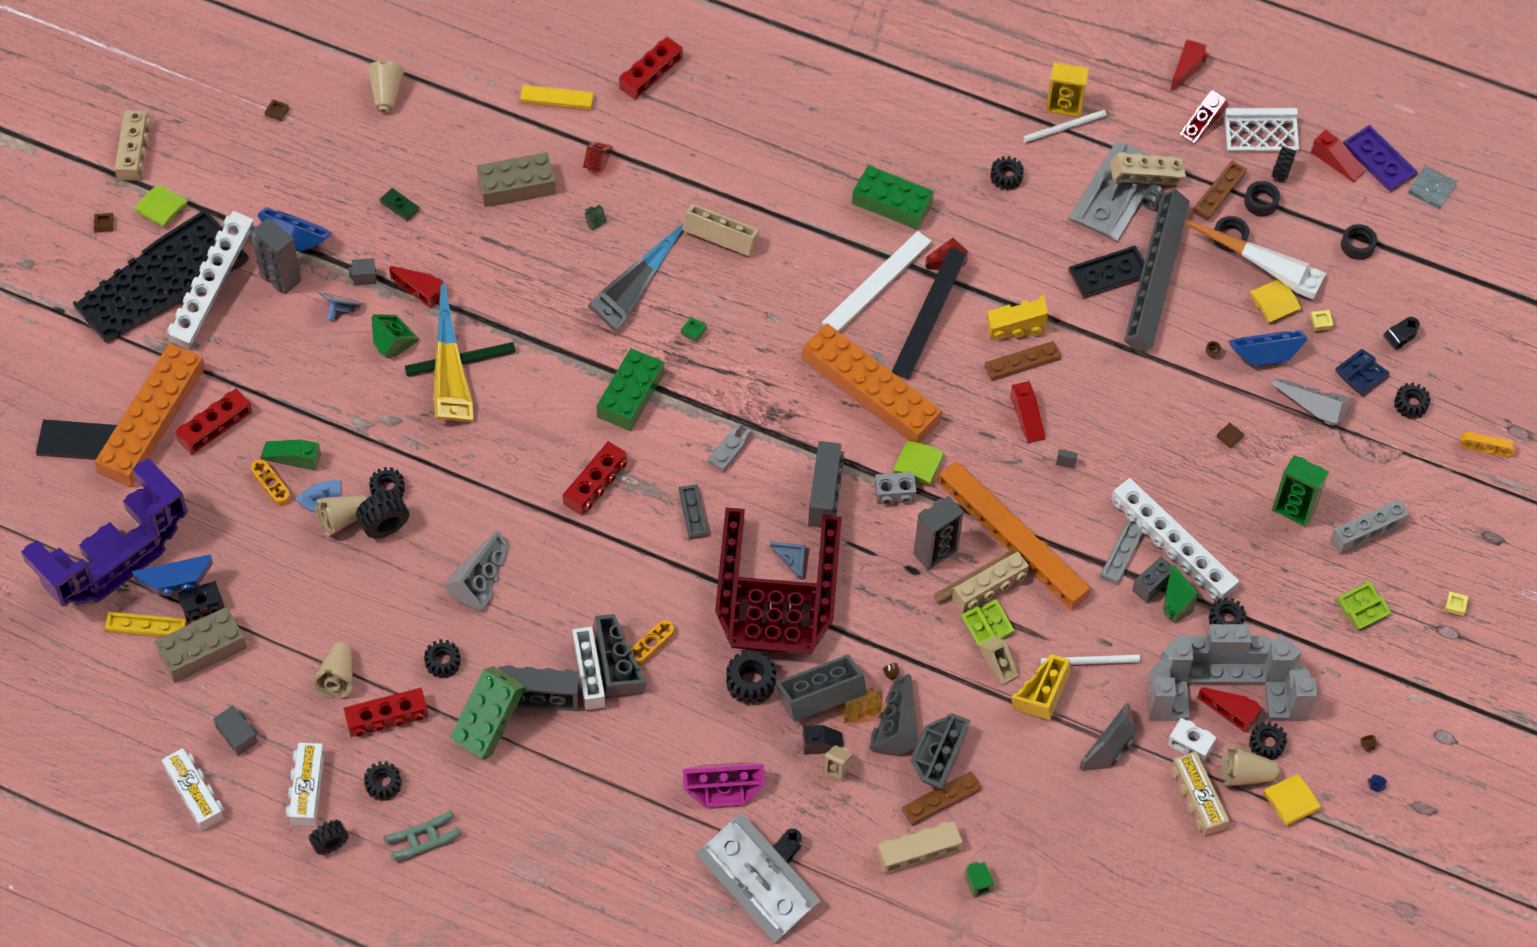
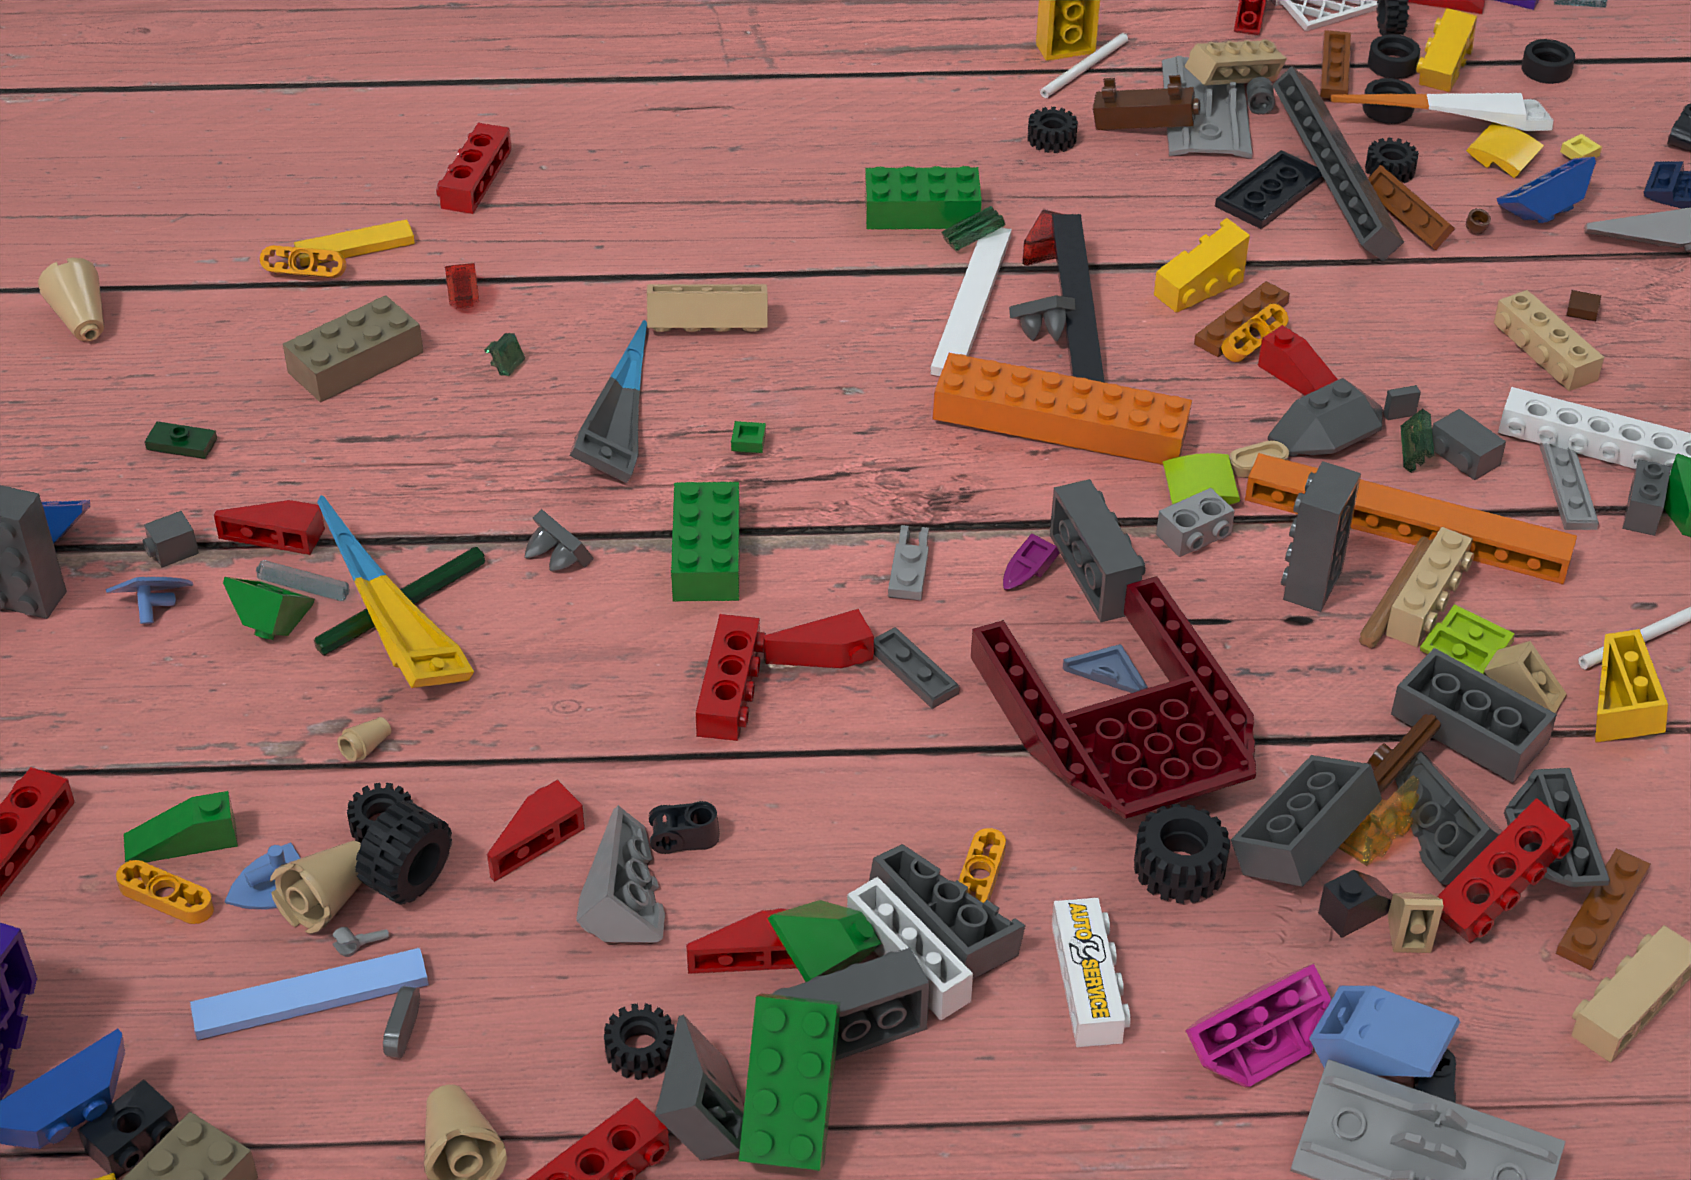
camera: 25 degrees left, 15 degrees down
(310, 566) = (307, 993): none -> light blue tile
(339, 548) = (348, 943): none -> light grey hand
(342, 600) = (401, 1021): none -> dark grey tile
(398, 437) = (362, 739): none -> tan cone
(417, 325) = (302, 580): none -> clear light blue axle
(449, 696) = (700, 1096): none -> dark grey slope
(457, 523) = (539, 825): none -> red slope
(512, 103) = (281, 267): none -> light orange beam
(520, 555) = (687, 825): none -> black piece
(521, 632) = (741, 946): none -> red slope
(549, 645) = (824, 937): none -> green slope
(556, 351) = (549, 534): none -> dark grey tile
(656, 479) = (825, 643): none -> red slope
(667, 717) = (1089, 972): none -> white brick
(774, 812) = (1382, 1033): none -> medium blue slope
(791, 474) = (1030, 559): none -> magenta plate
(884, 756) = (1506, 851): none -> red brick
(898, 673) = (1405, 751): none -> reddish brown axle
(903, 313) = (1051, 308): none -> dark grey tile
(908, 232) = (973, 228): none -> clear green tile
(952, 667) = (1475, 714): none -> dark grey brick
(969, 459) = (1244, 458): none -> tan tile
(1005, 374) = (1243, 332): none -> light orange beam
(1019, 453) = (1328, 420): none -> dark grey wedge
(1055, 487) = (1421, 438): none -> clear green tile
(1069, 181) = (1145, 107): none -> reddish brown brick
(1081, 502) = (1467, 444): none -> dark grey brick
(1178, 321) = (1410, 208): none -> dark orange plate
(1184, 452) = (1548, 340): none -> tan brick
(1196, 290) = (1394, 156): none -> black tyre
(1293, 210) = (1447, 50): none -> yellow wedge

